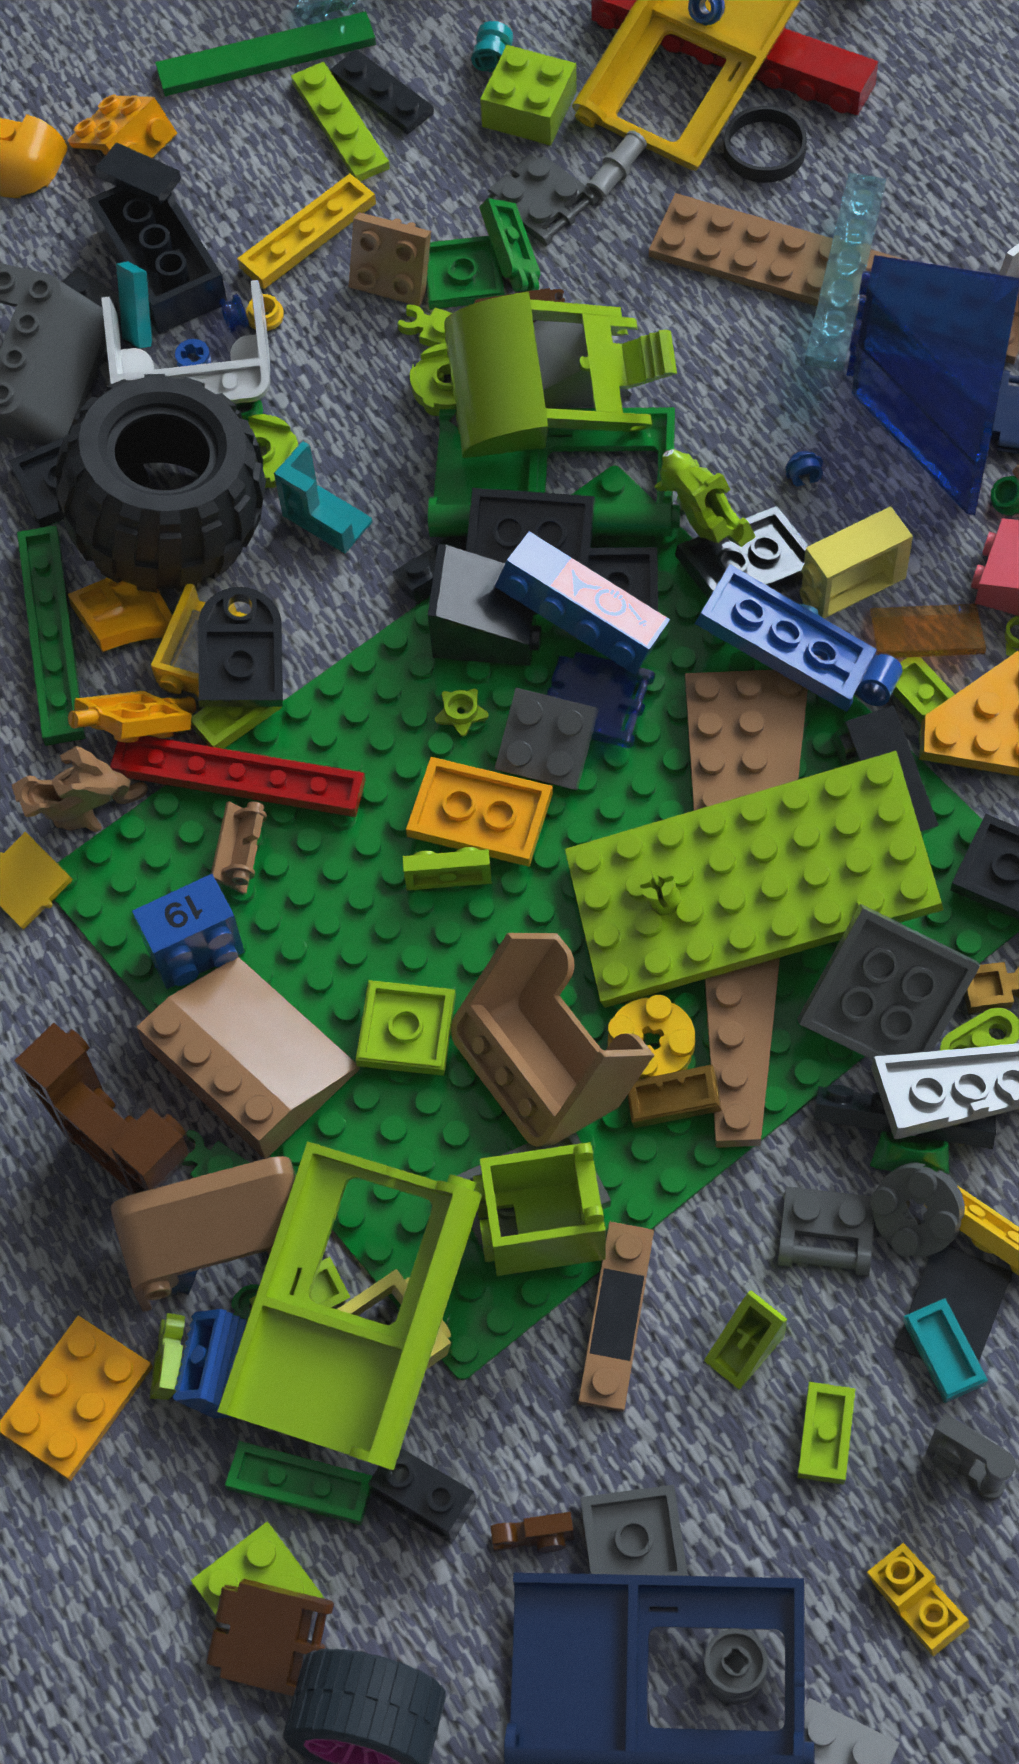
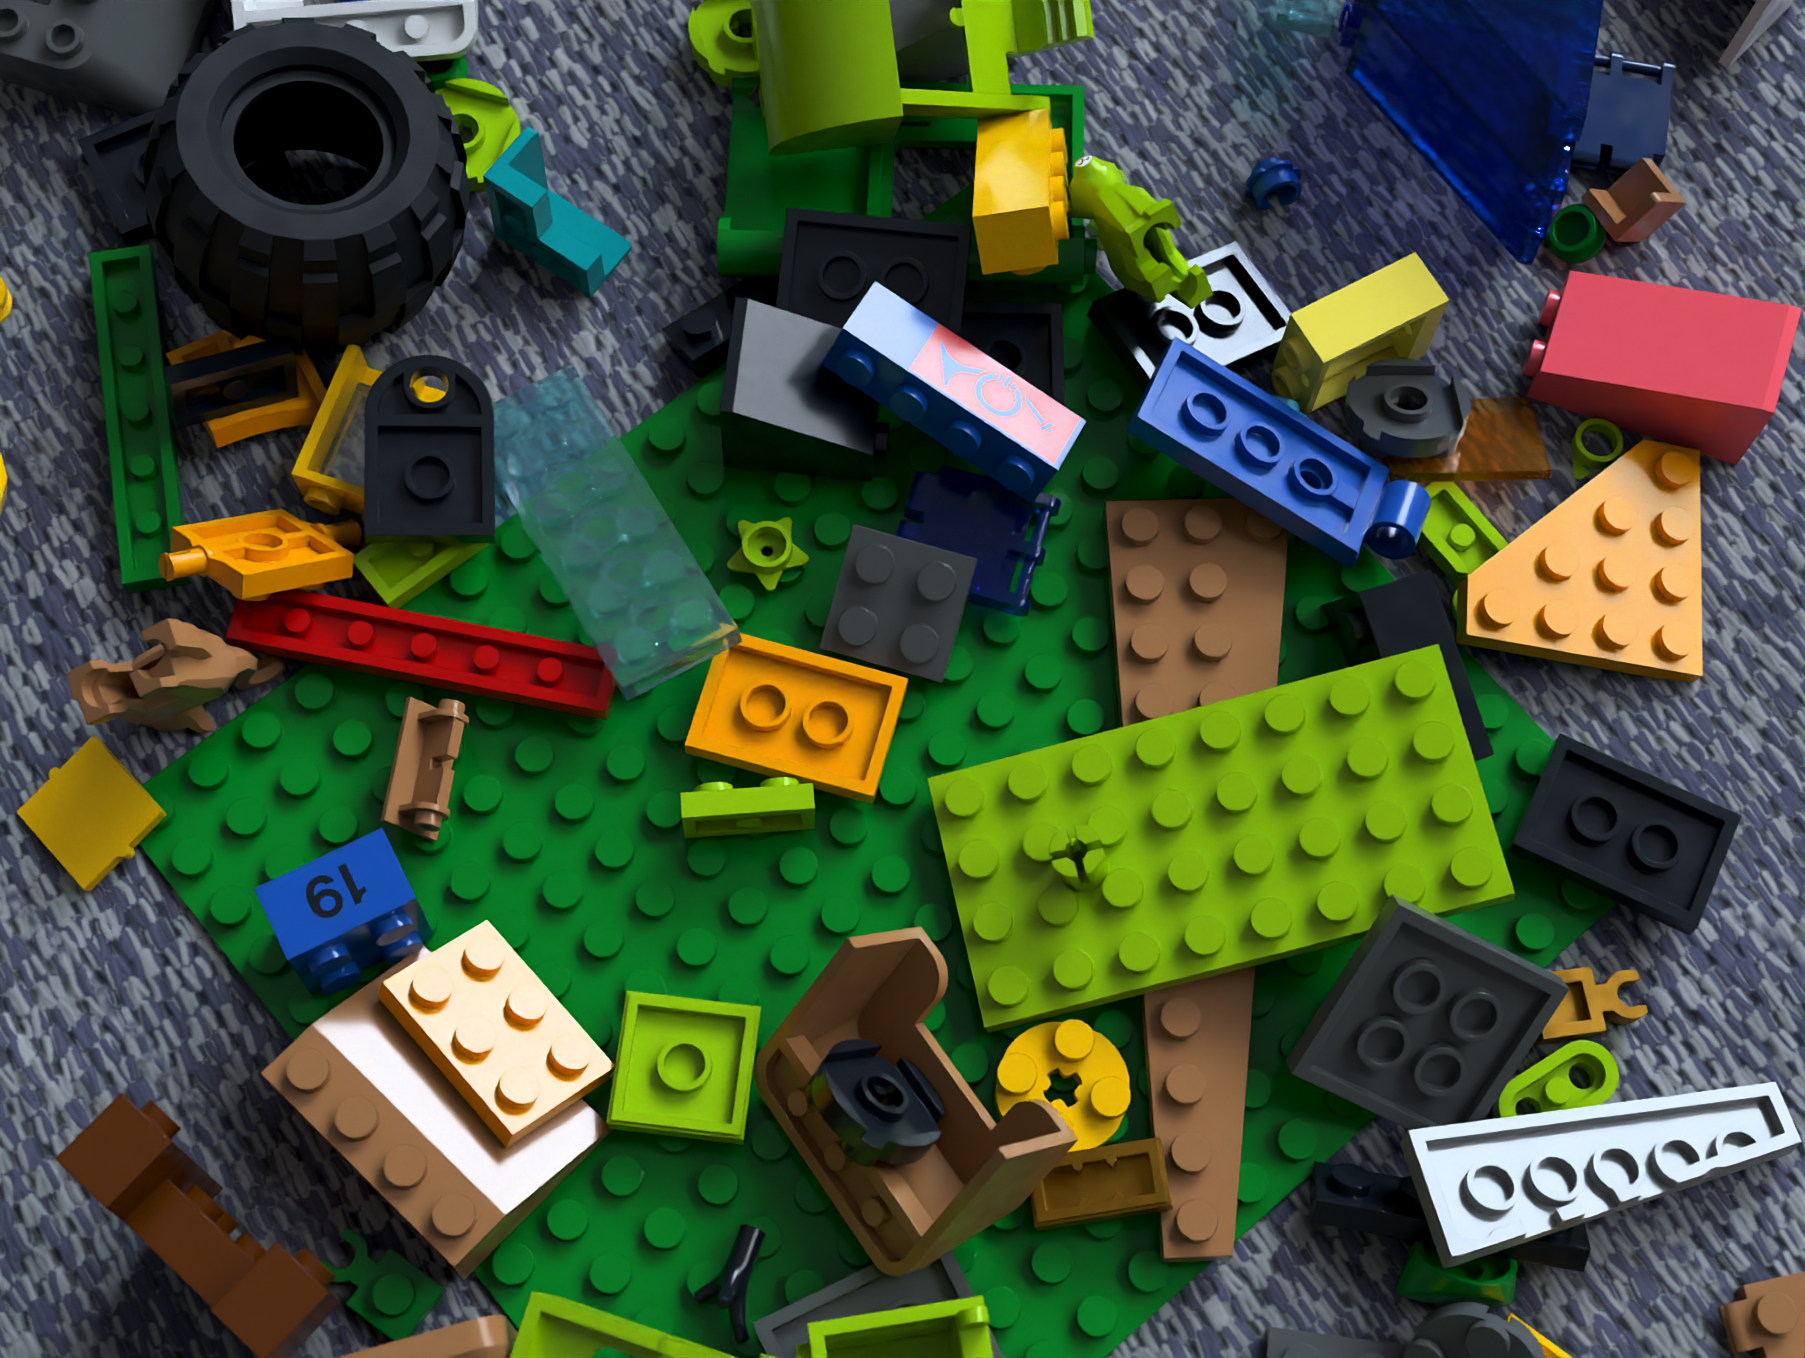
camera: 10 degrees left, 5 degrees up
(111, 608) = (230, 382): none -> black plate
(285, 1005) = (496, 1032): none -> plate
(354, 700) = (605, 535): none -> clear light blue plate
(438, 1154) = (734, 1279): none -> black bar
(527, 1042) = (875, 1105): none -> black plate
(626, 474) = (1020, 192): none -> yellow brick
(904, 622) = (1428, 429): none -> dark grey plate

